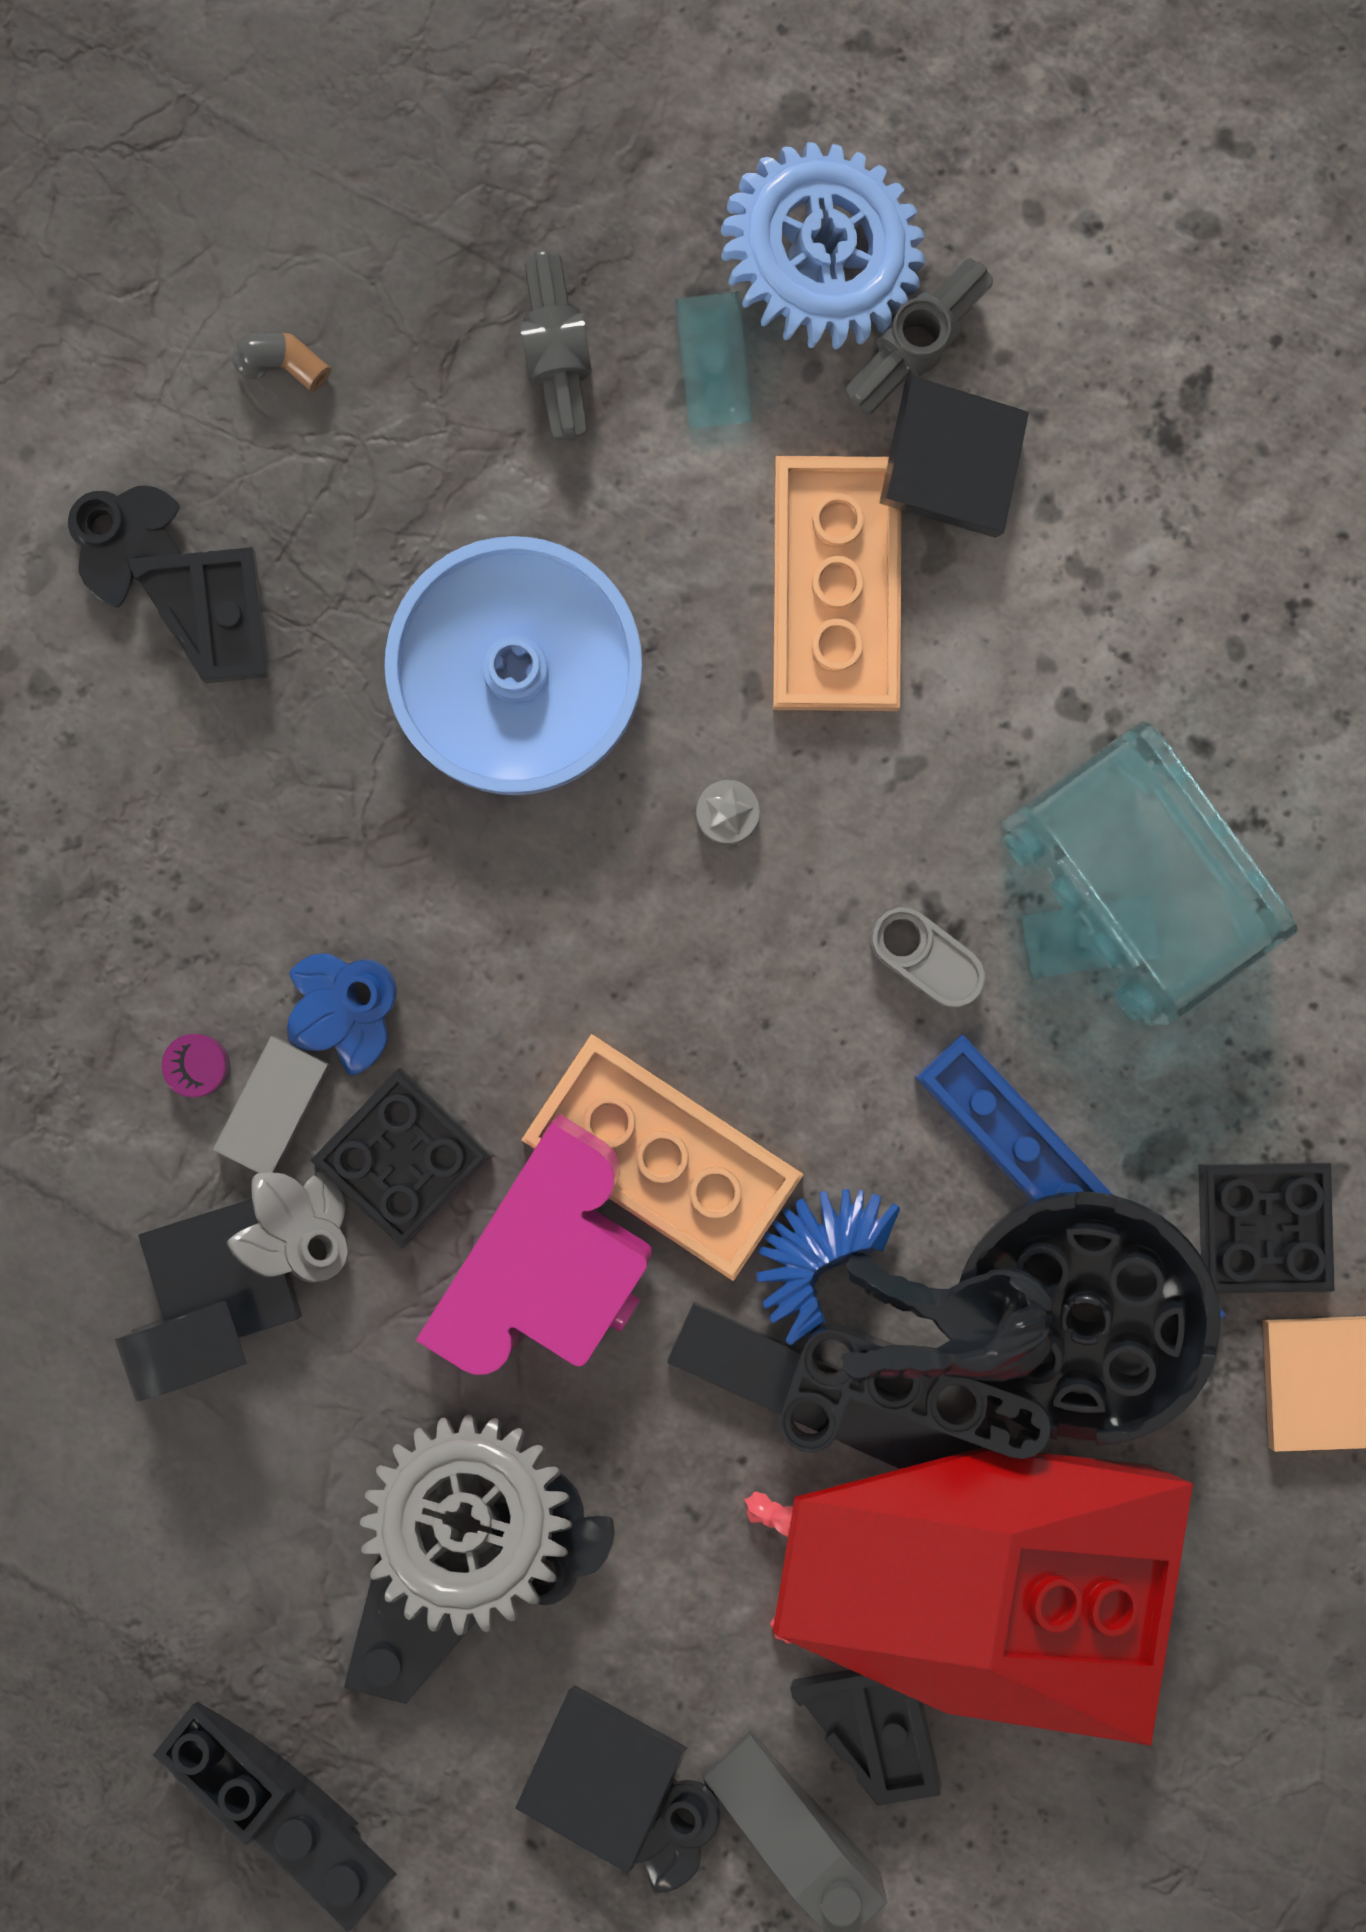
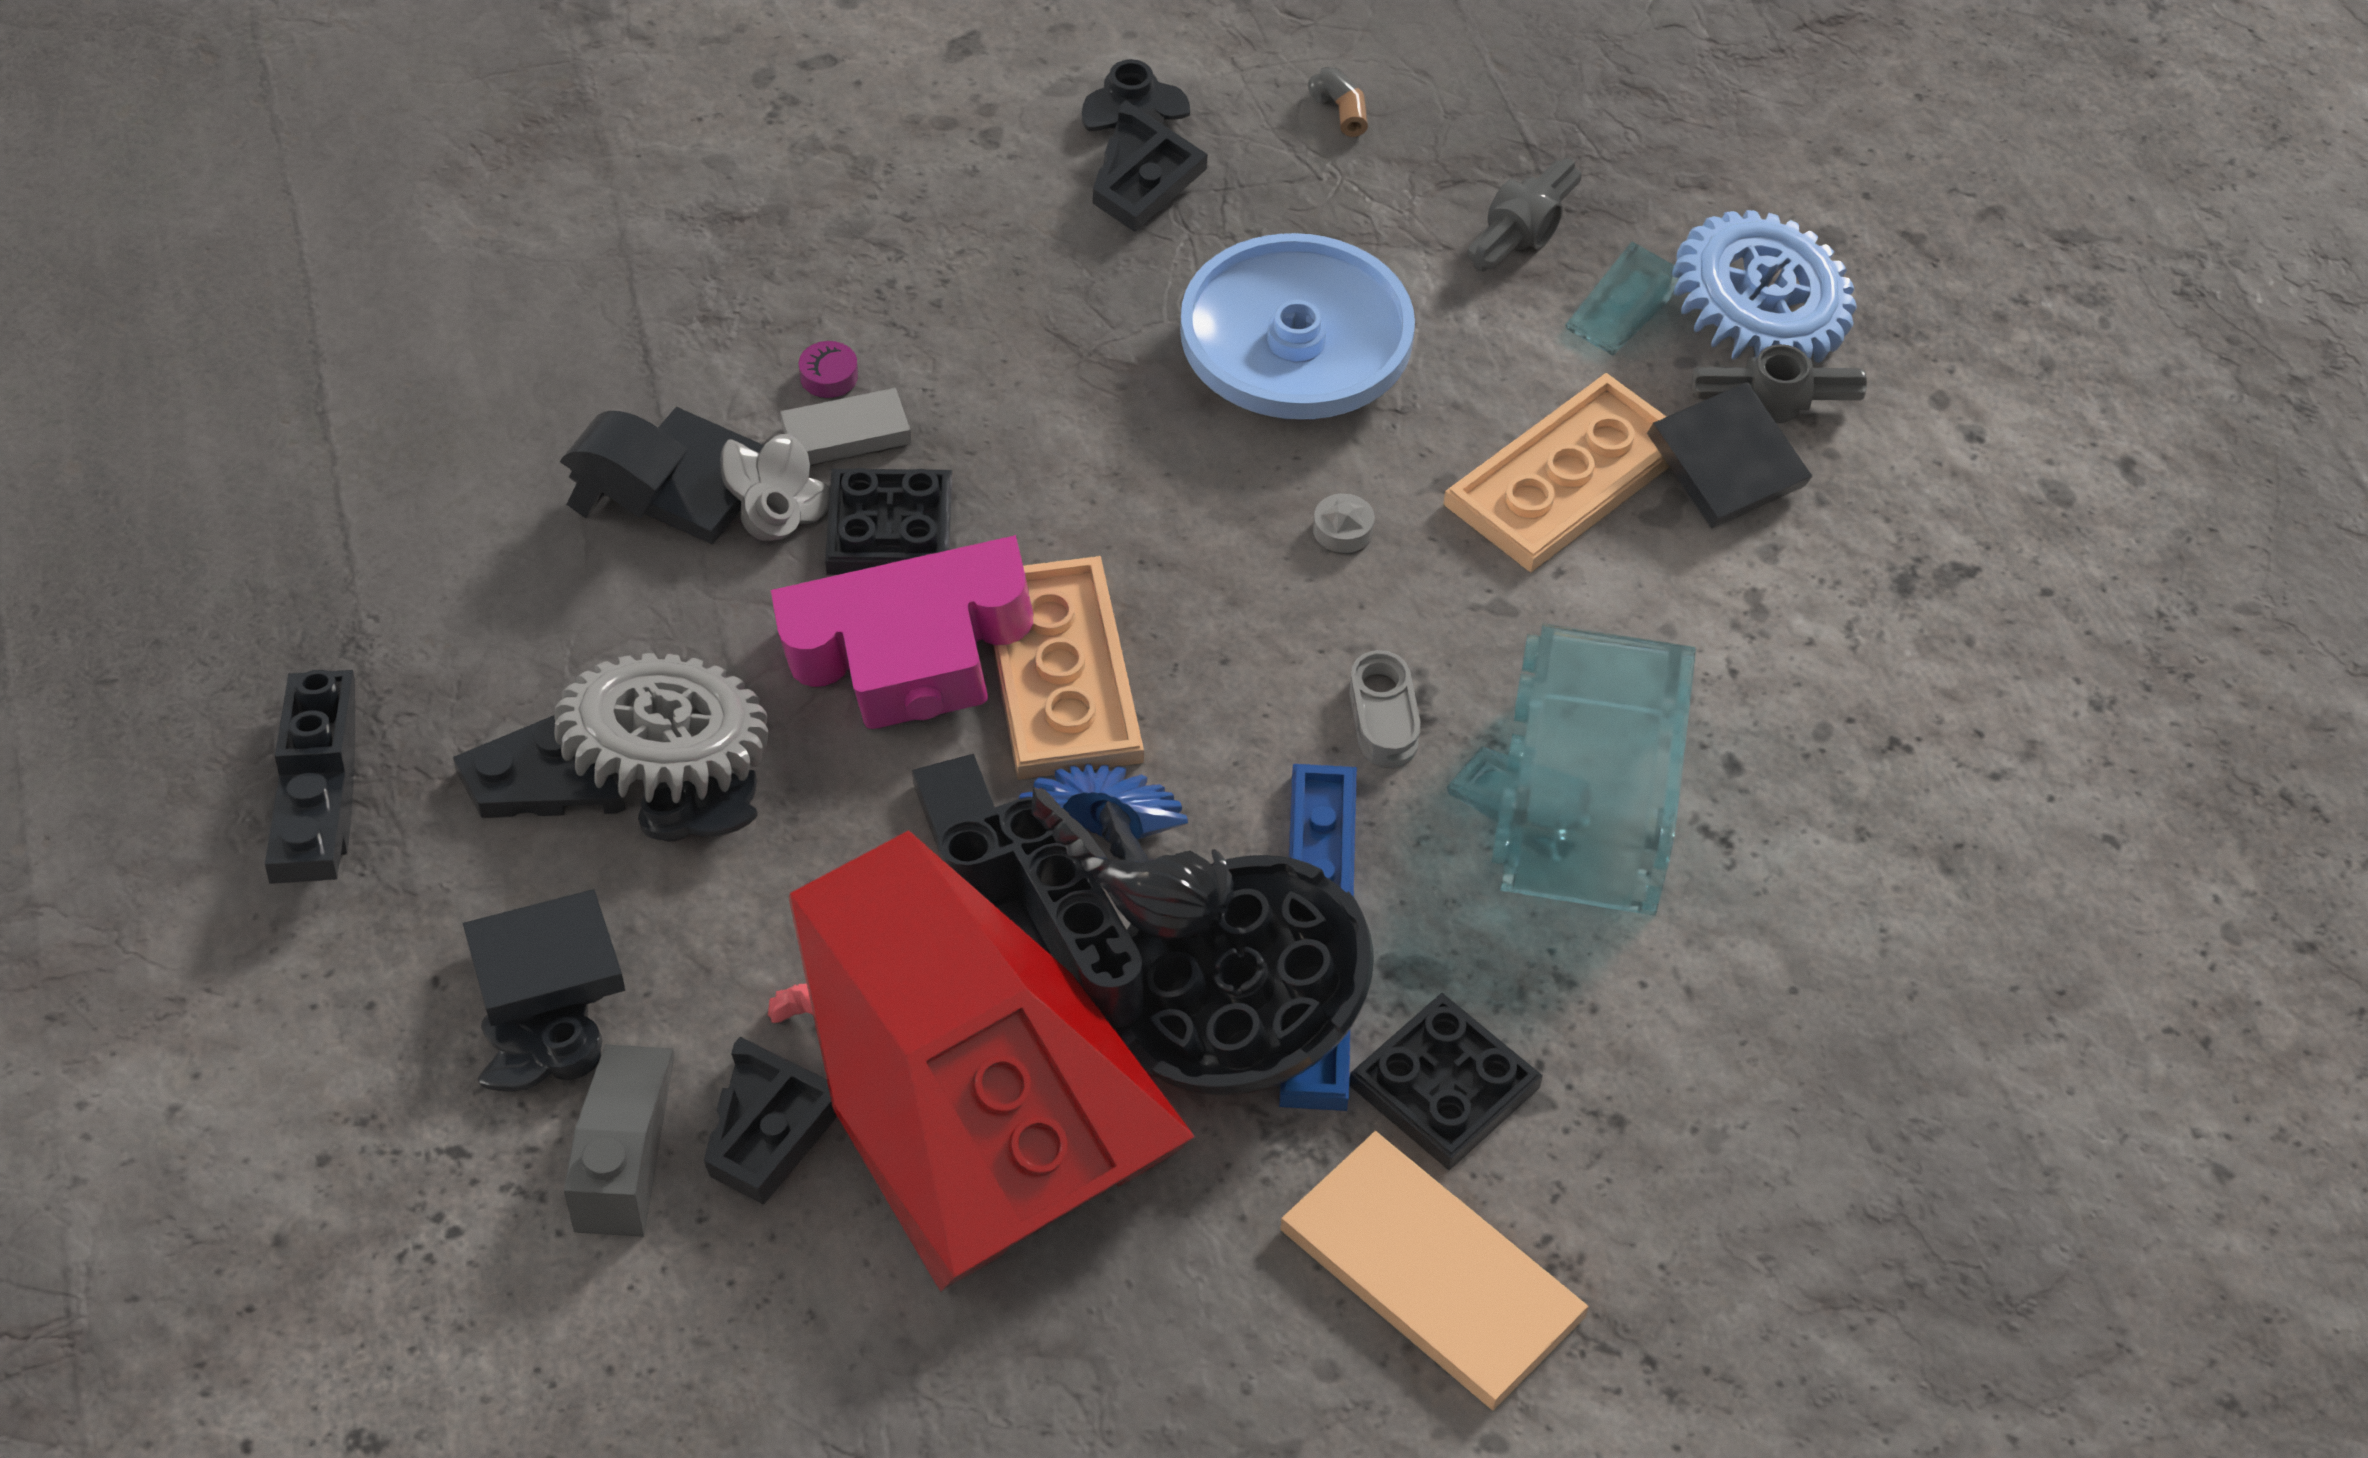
camera: 40 degrees right, 35 degrees down
(333, 1013) = (959, 416): blue plate -> none

